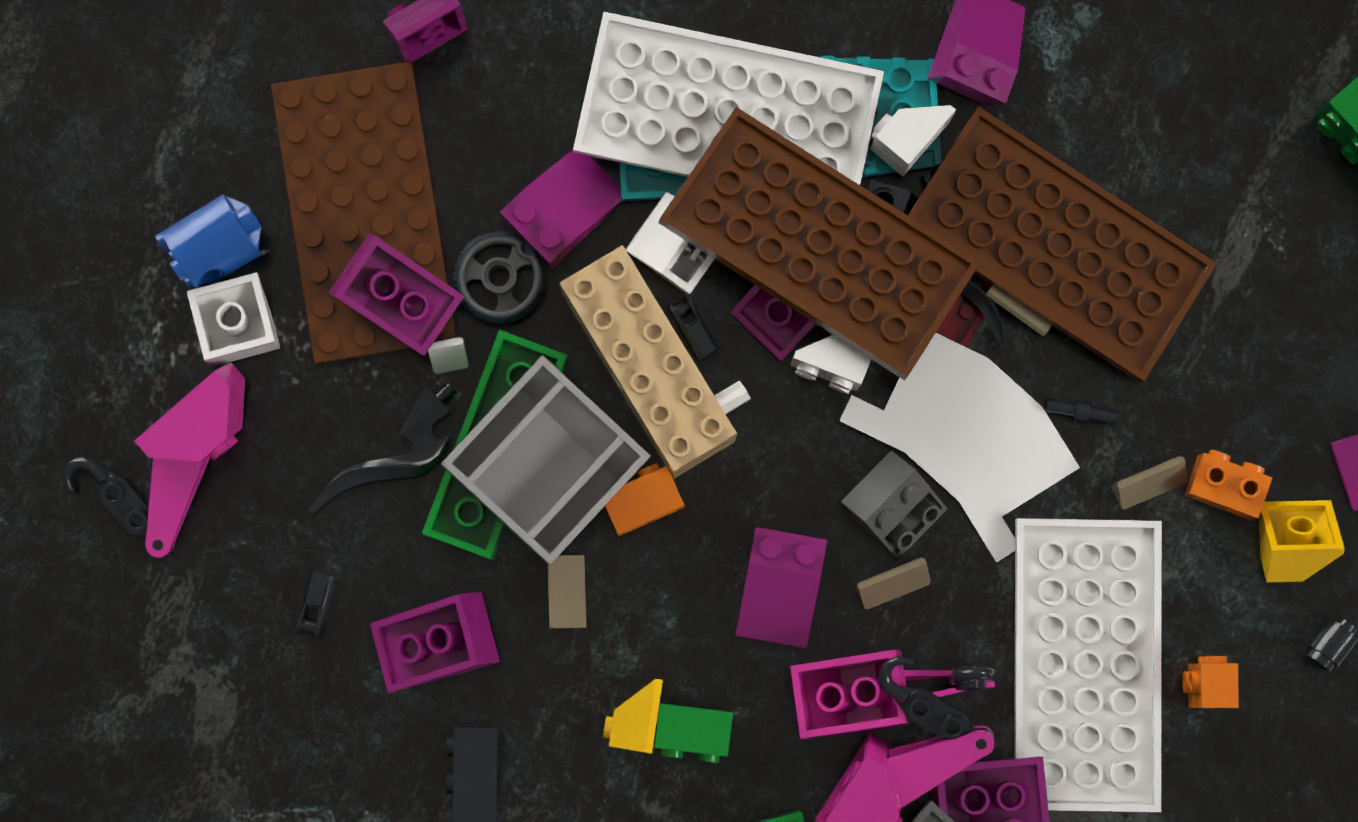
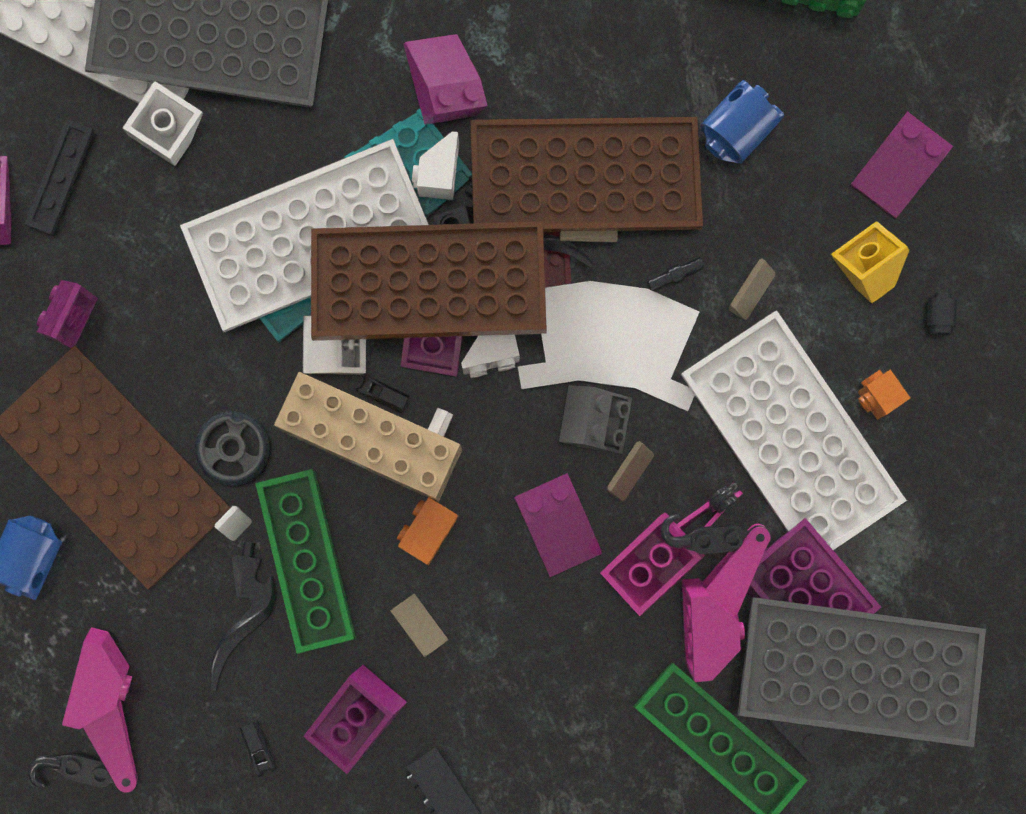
camera: 30 degrees left, 0 degrees up
(233, 320) = (73, 598): white slope -> none
(396, 294) = (170, 506): magenta slope -> none
(545, 460) = (345, 549): light grey slope -> none
(562, 206) = (241, 372): magenta slope -> none
(635, 720) = (523, 679): yellow slope -> none
(693, 731) = (566, 659): green brick -> none
(1228, 485) = (804, 256): orange brick -> none
(1257, 300) = (740, 123): none -> blue cylinder

